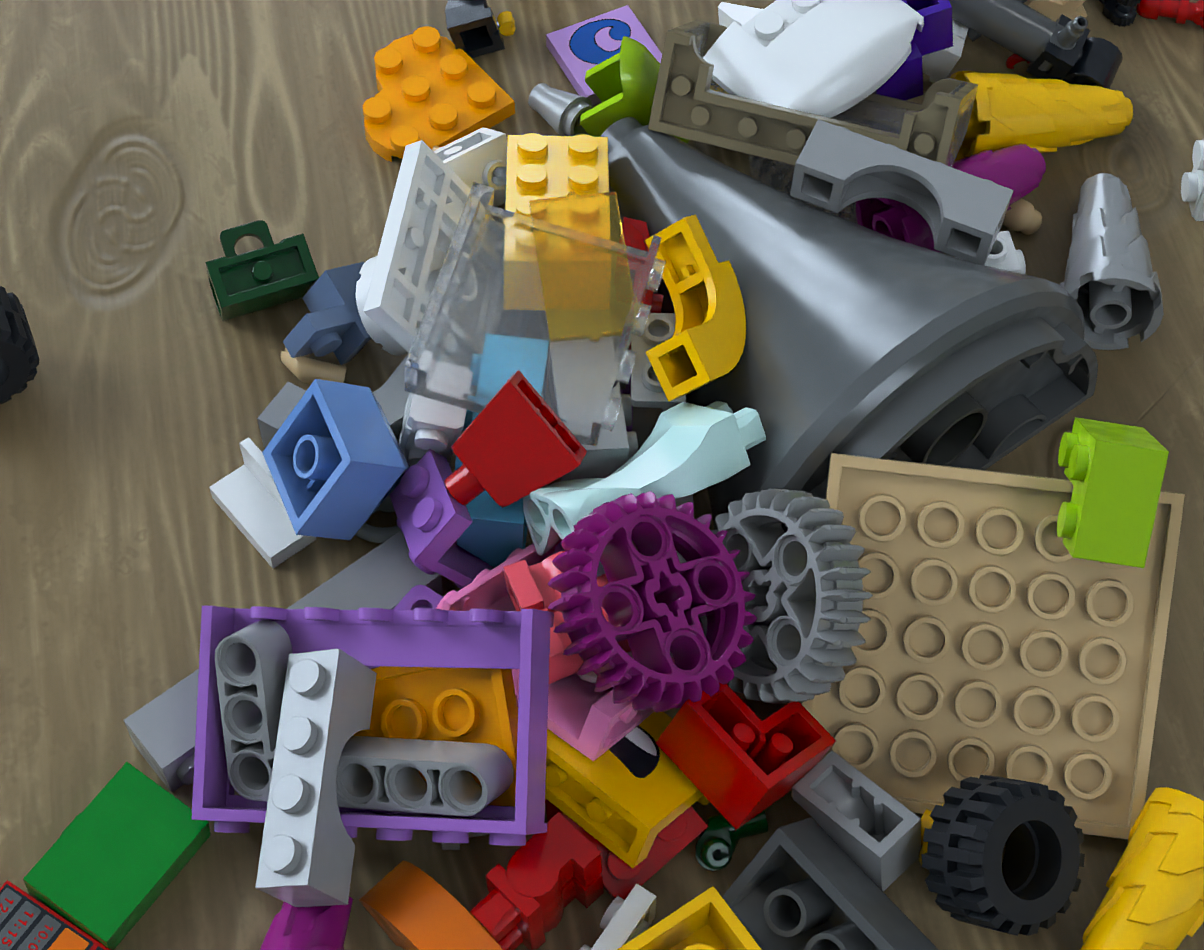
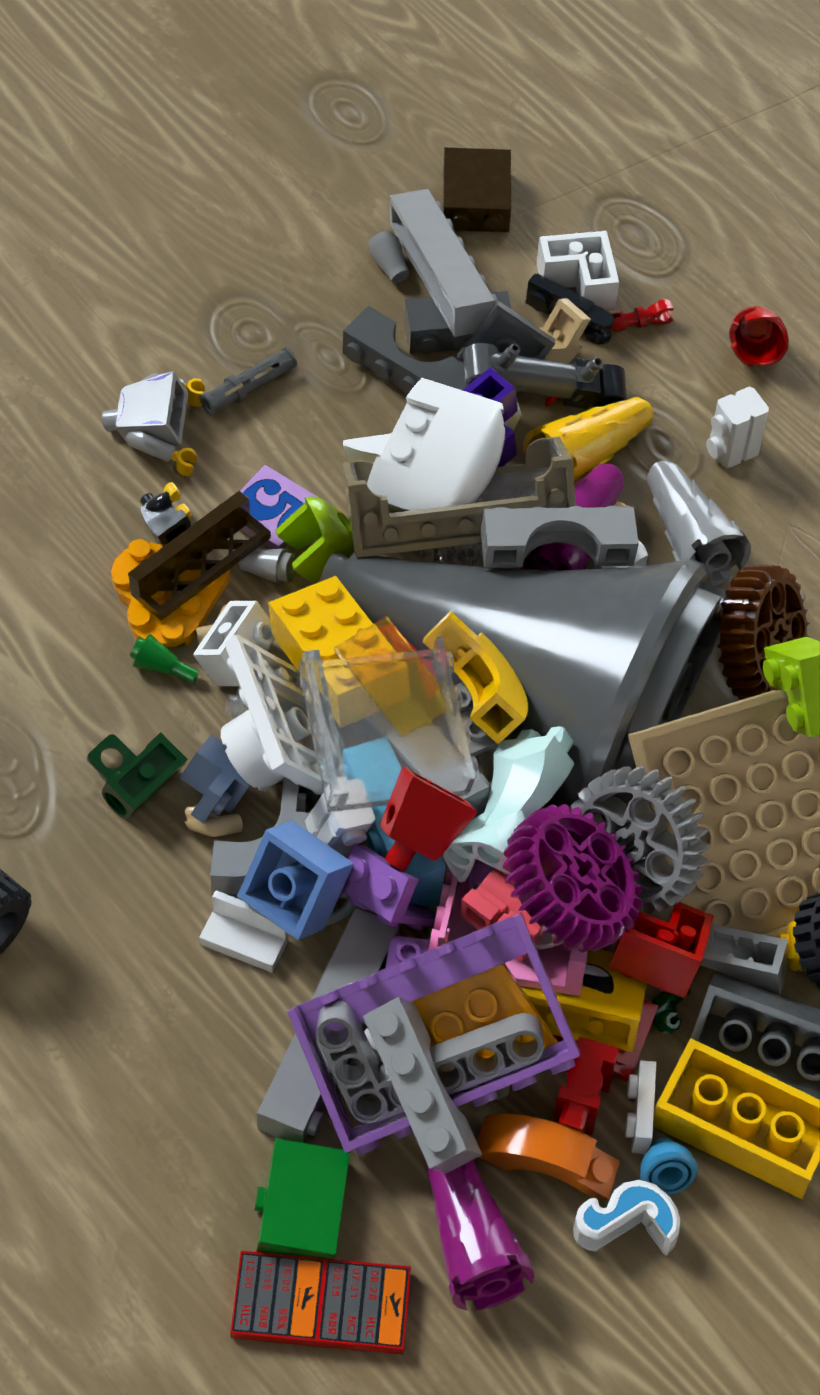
camera: 30 degrees left, 0 degrees up
(366, 156) = (155, 657): none -> green cone
(475, 57) = (189, 547): none -> dark brown fence
(1118, 377) = (759, 612): none -> reddish brown gear

